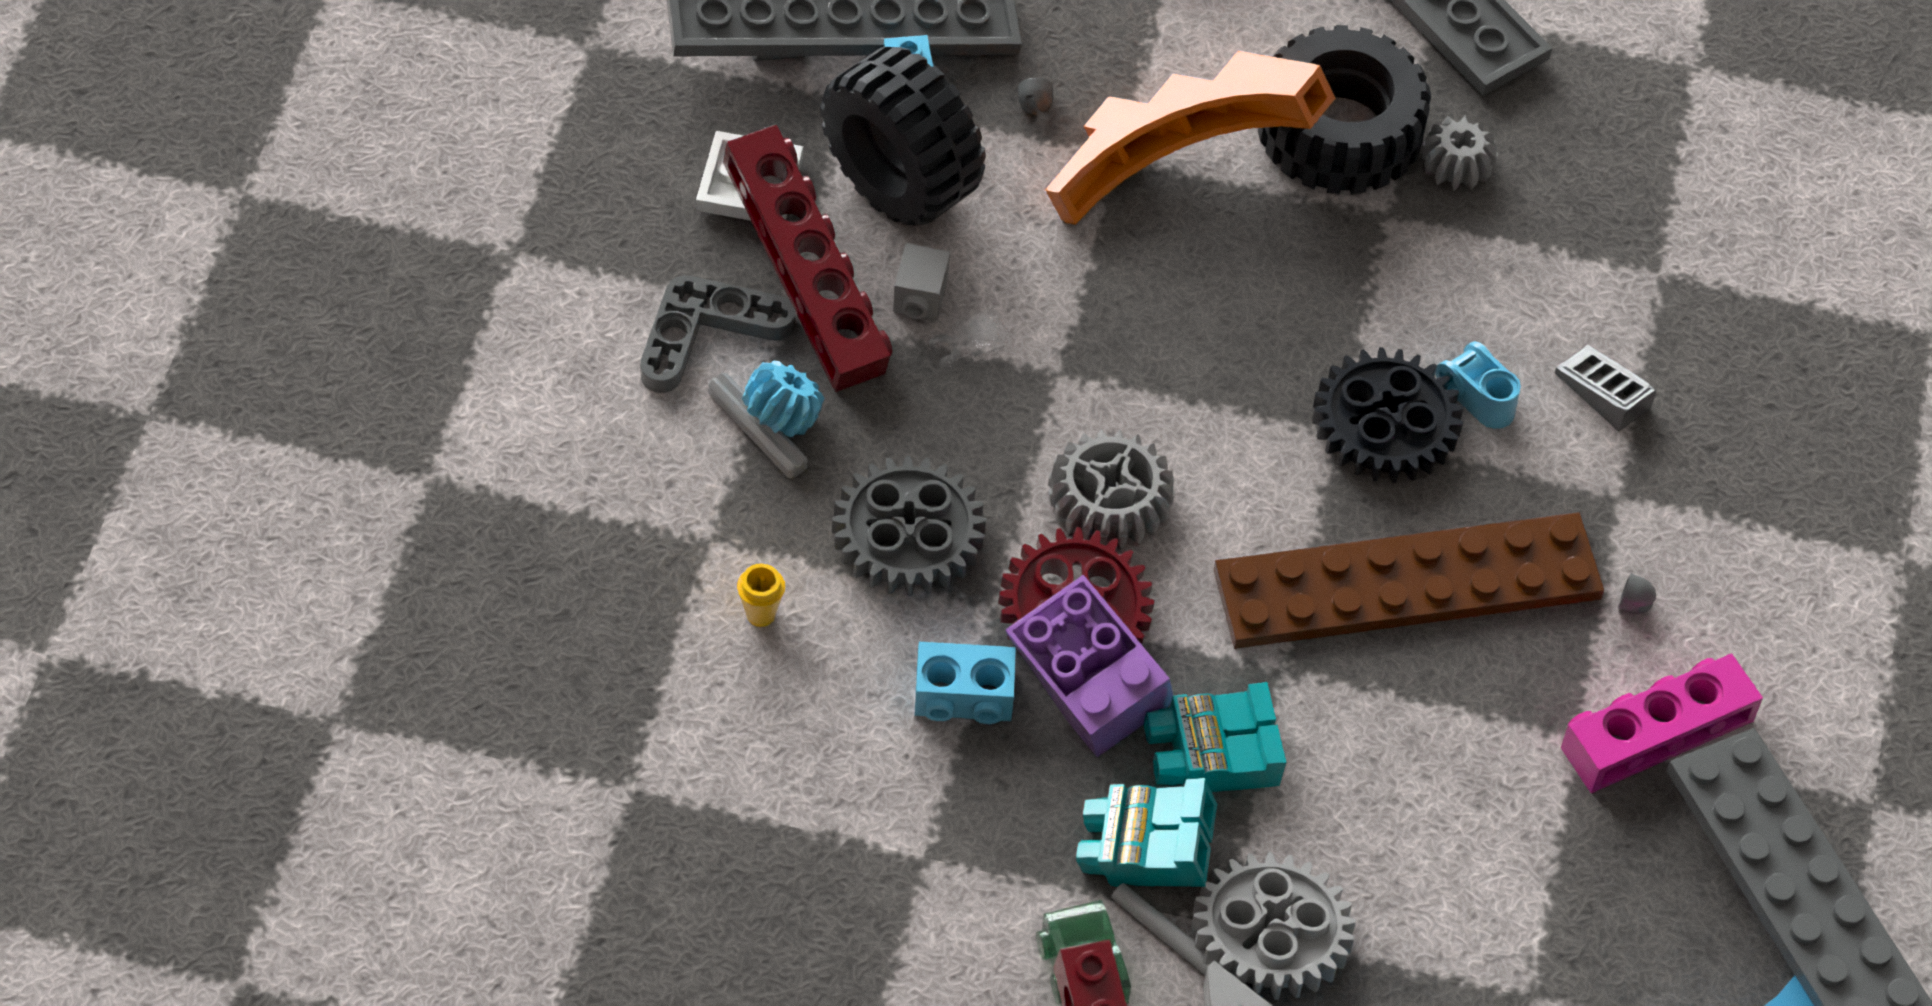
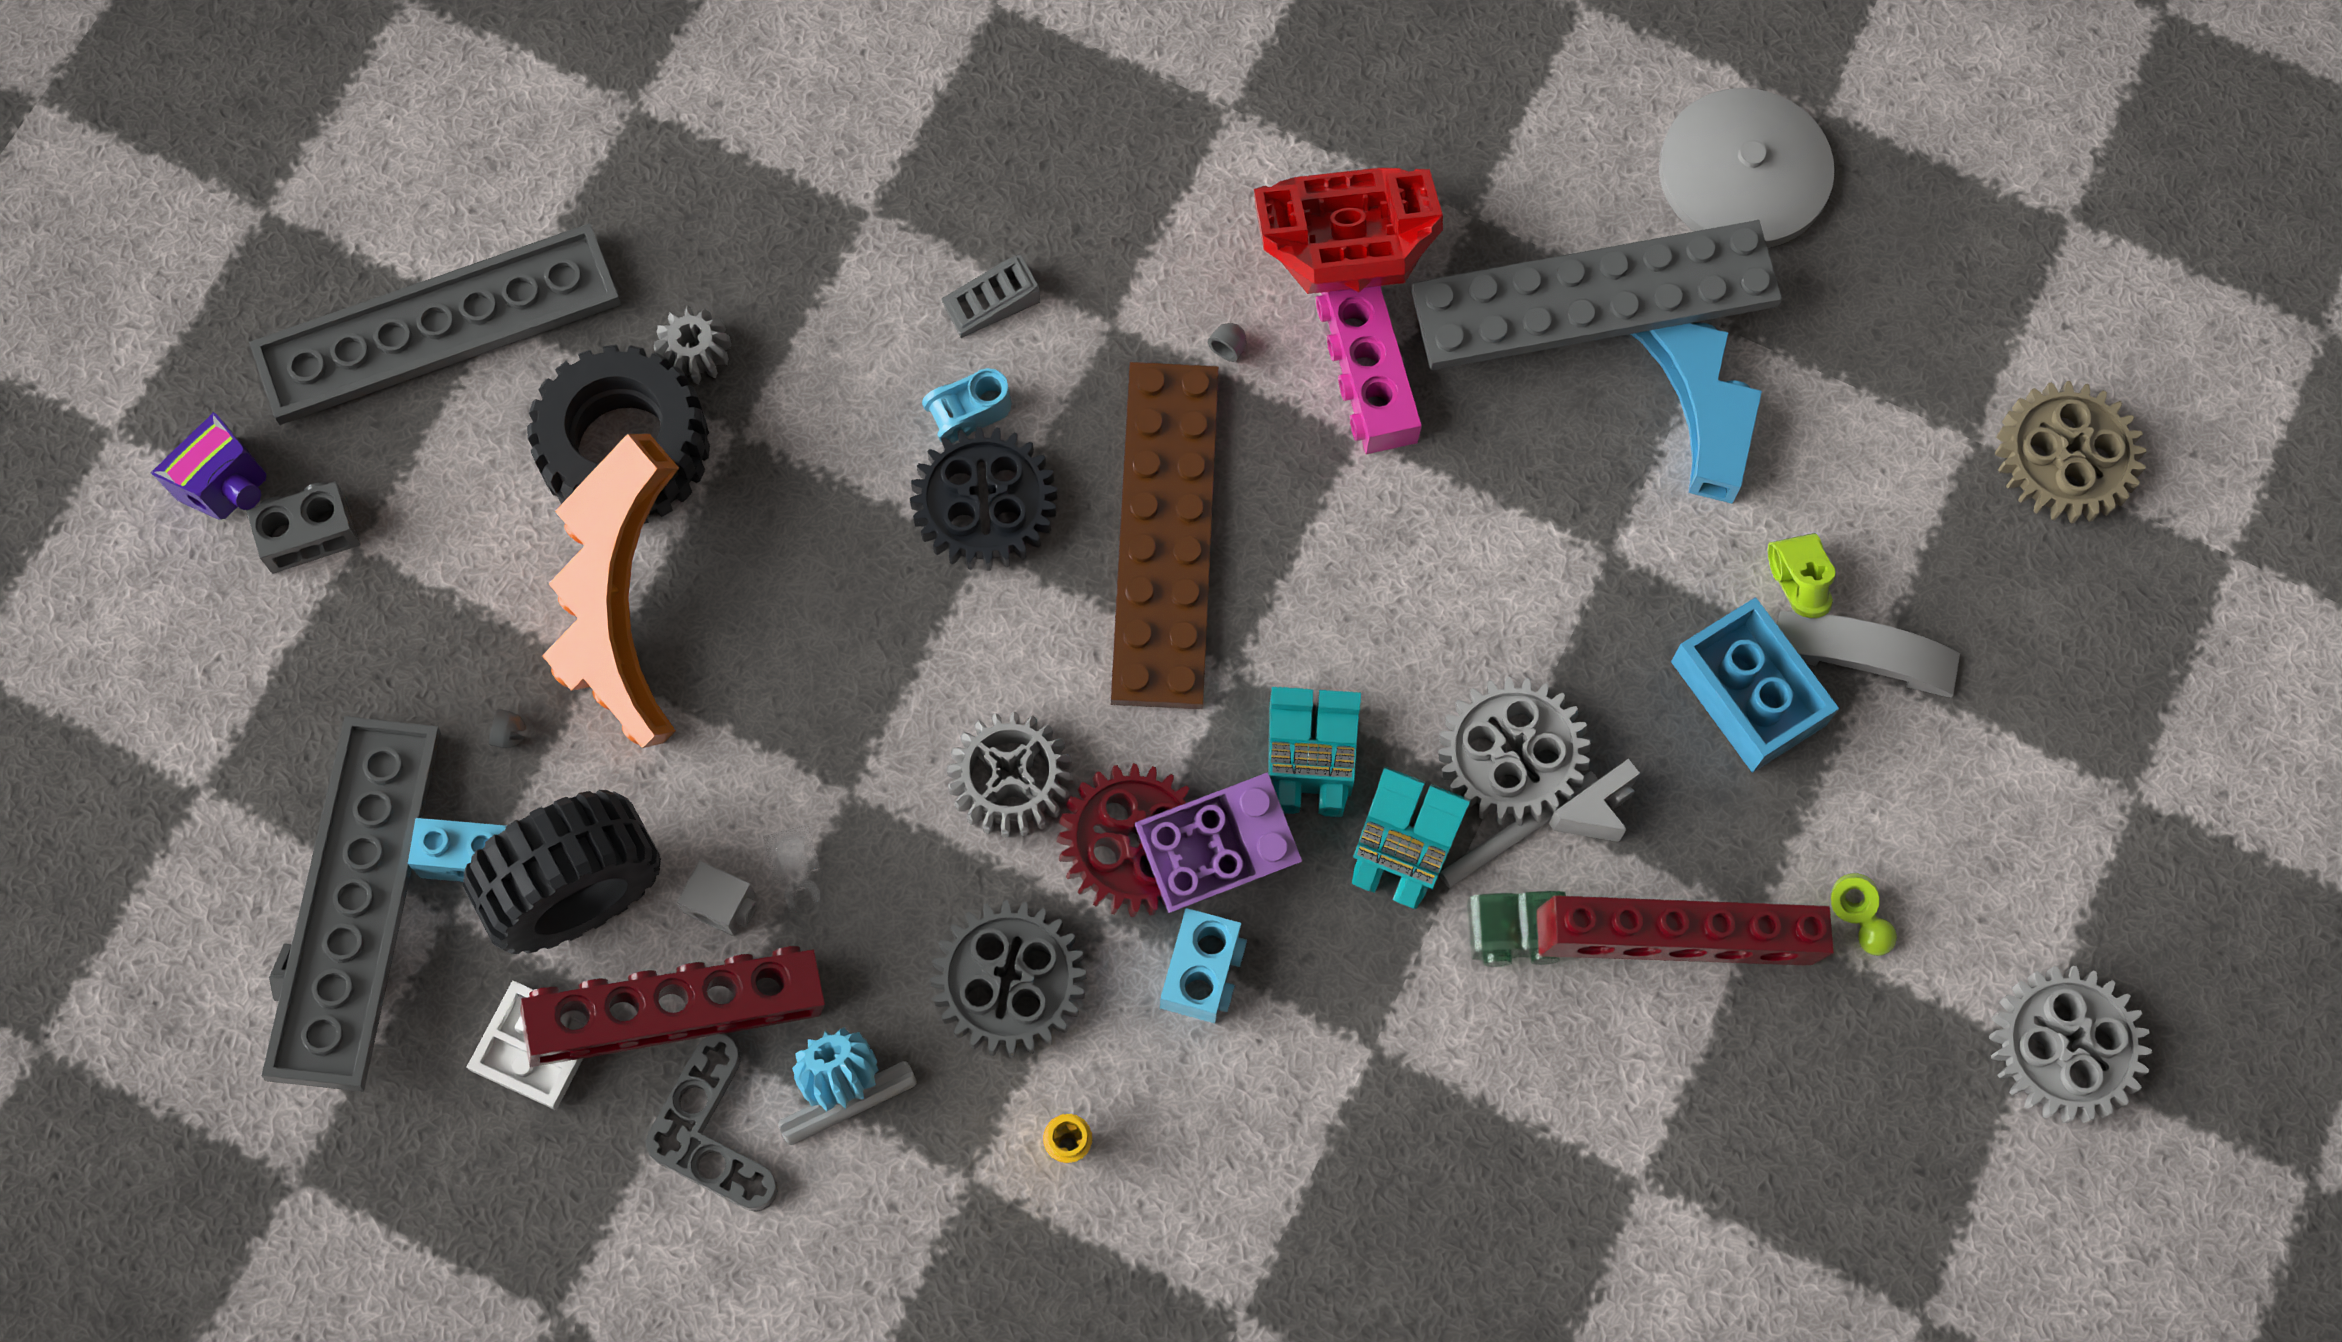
camera: 75 degrees left, 15 degrees up
(1789, 649) = (1350, 226): none -> red piece

